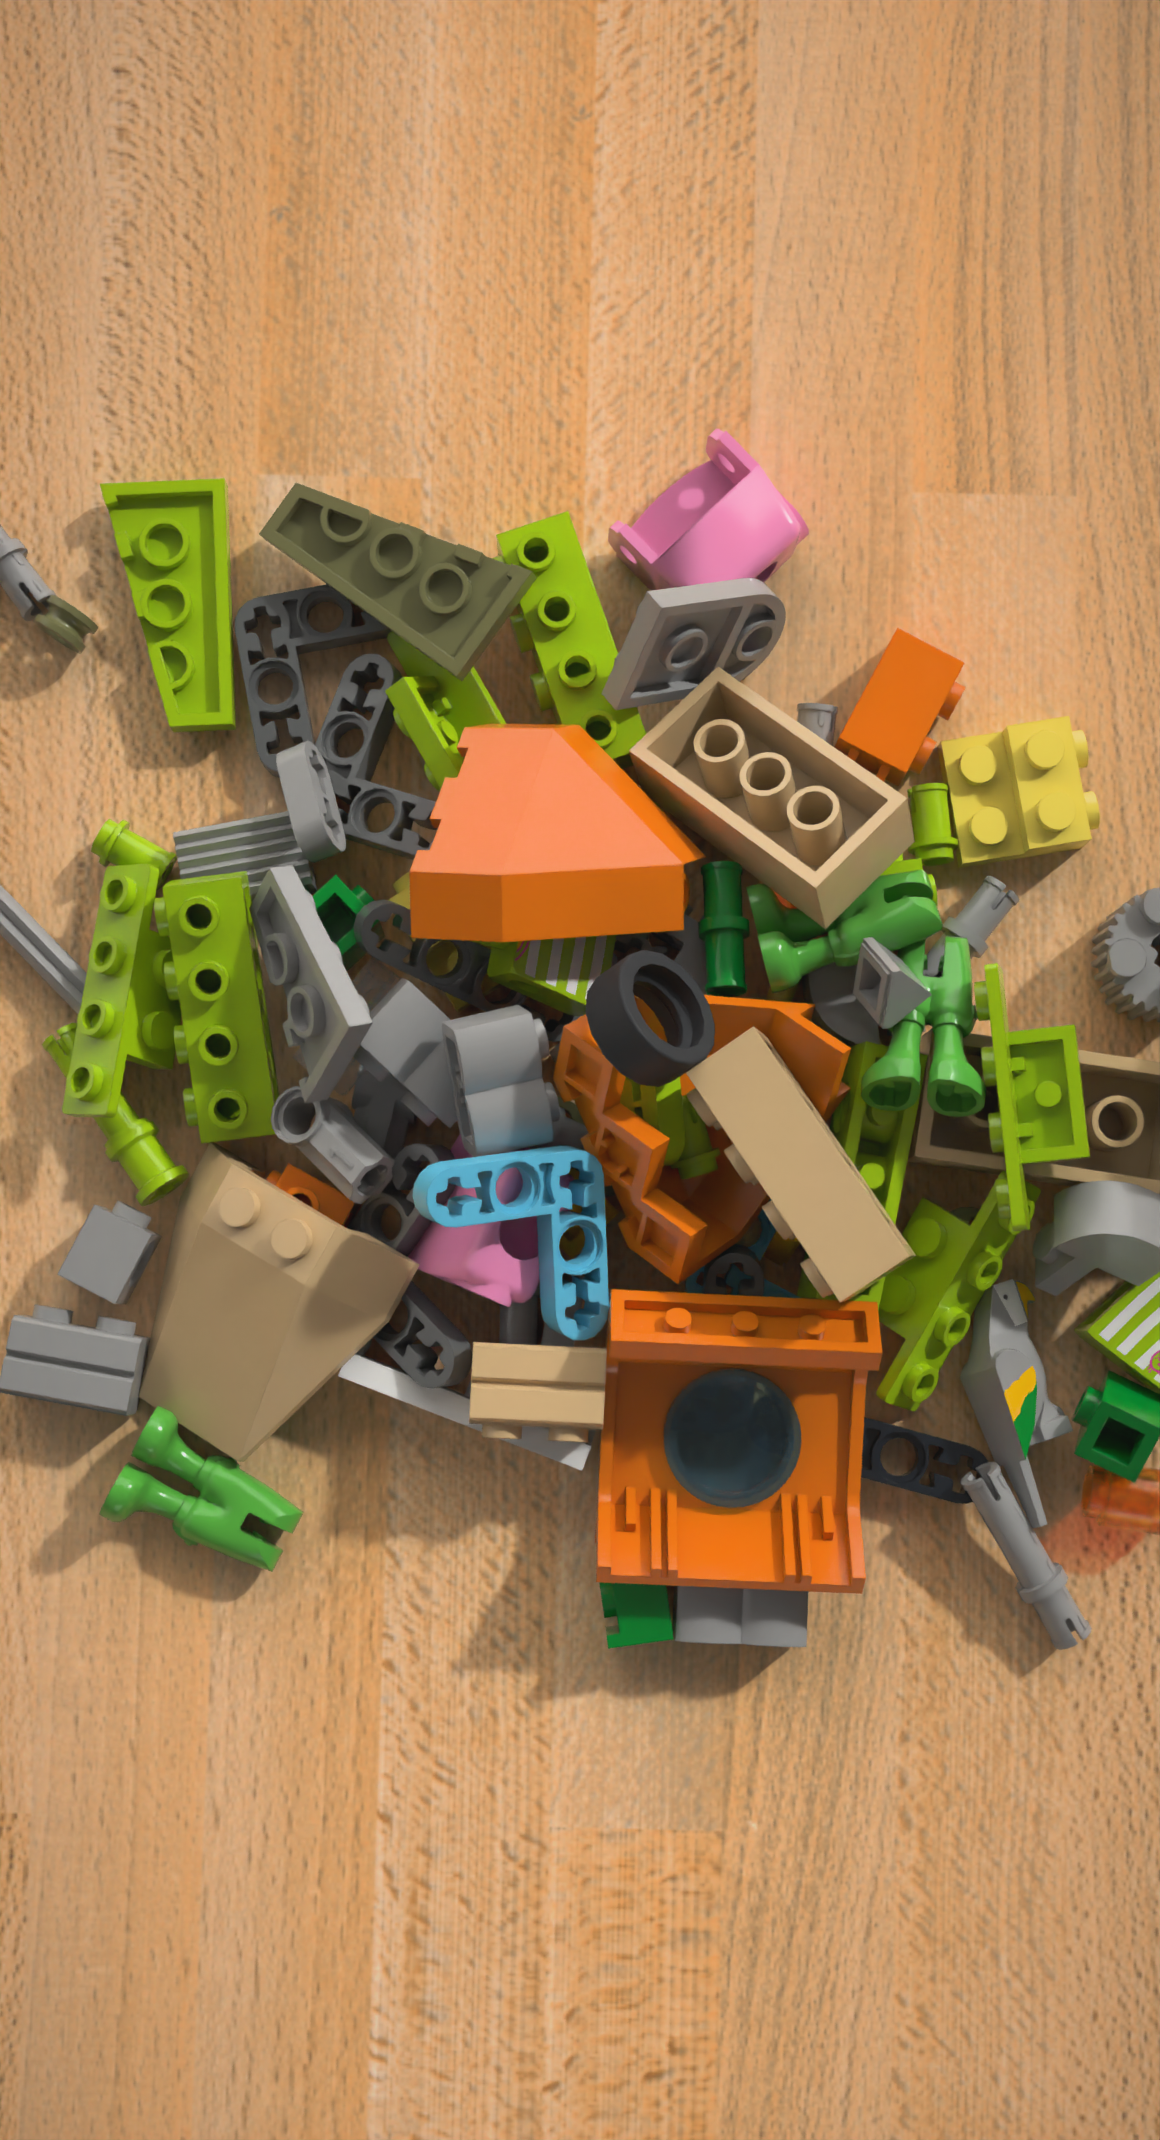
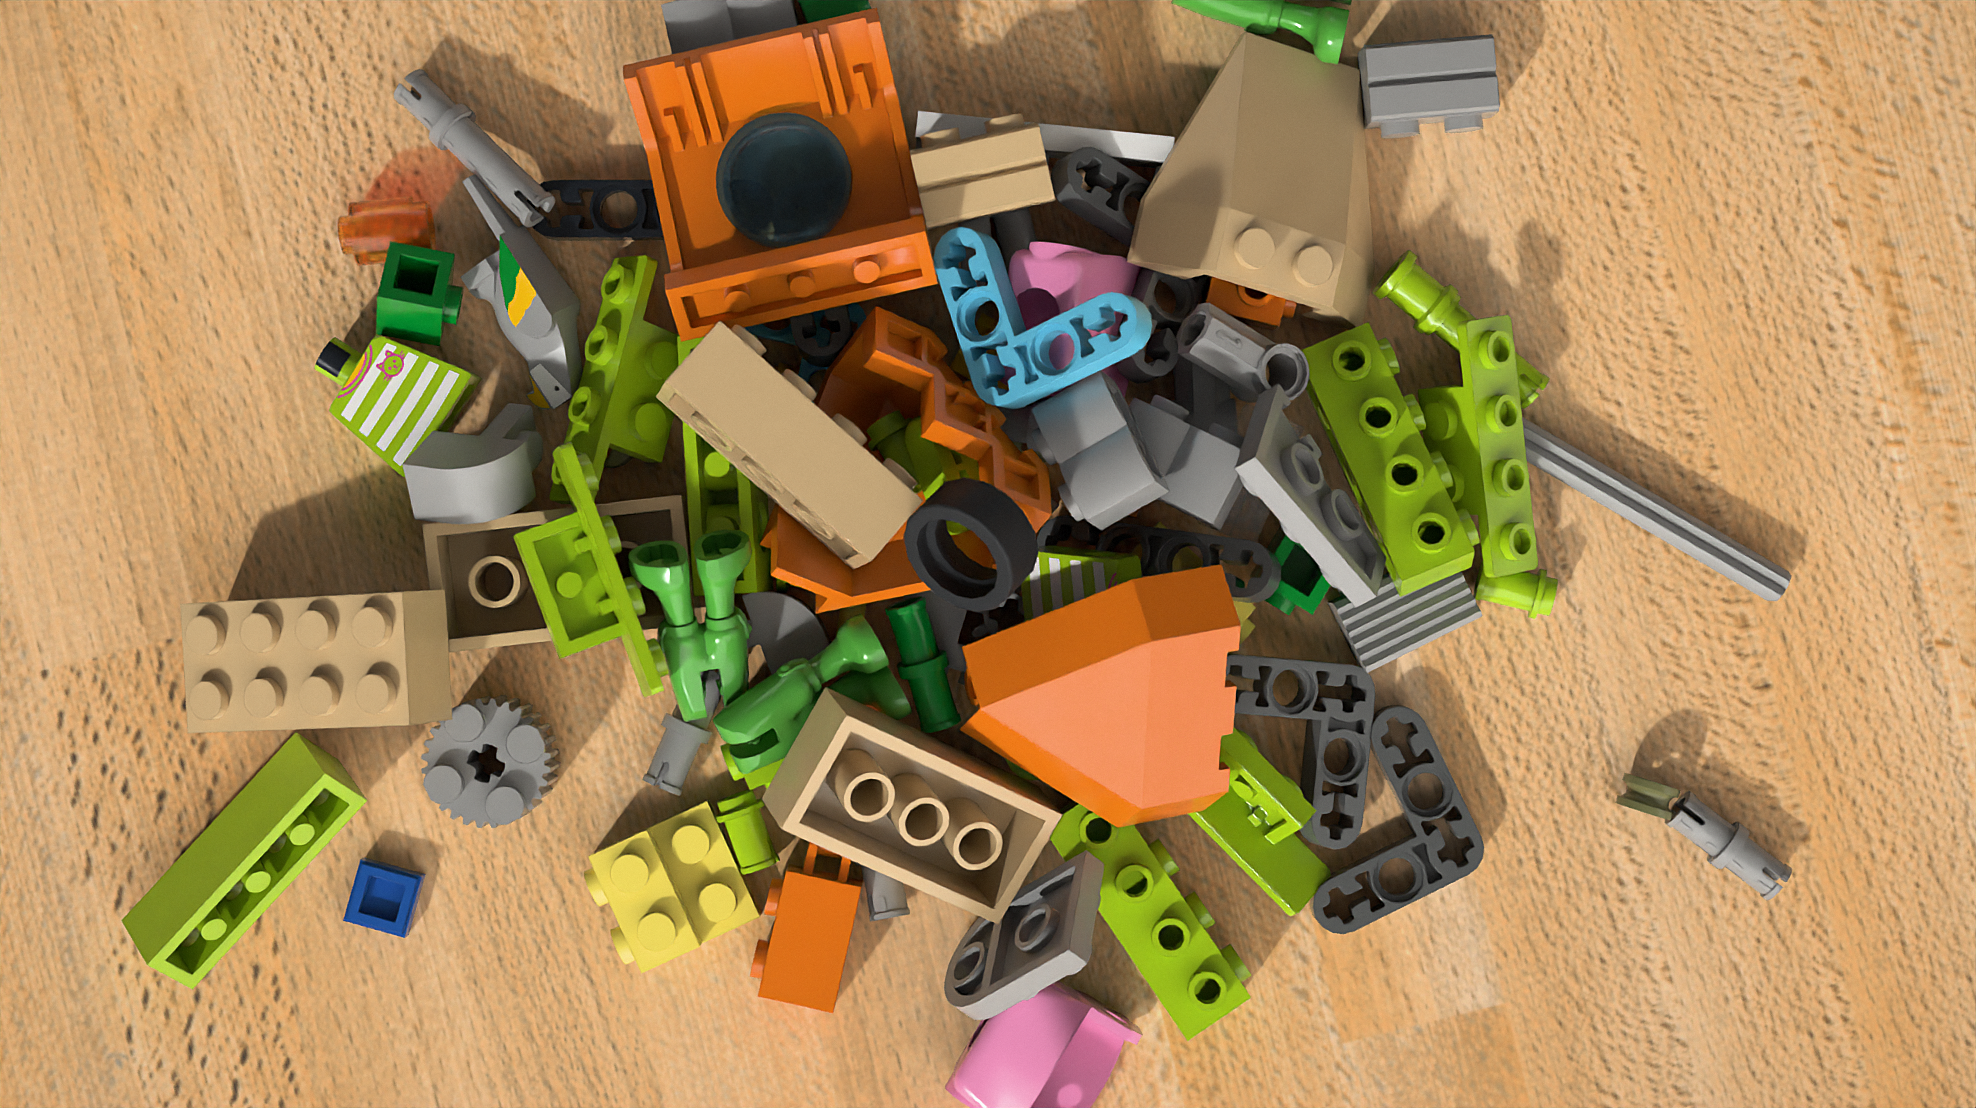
camera: 170 degrees right, 5 degrees up
(111, 1252) = (1424, 197): light grey brick -> none
(180, 582) = (1550, 877): lime wing -> none
(311, 801) = (1357, 681): light grey beam -> none
(416, 585) = (1324, 927): olive wing -> none
(886, 984) = (751, 648): light grey slope -> none

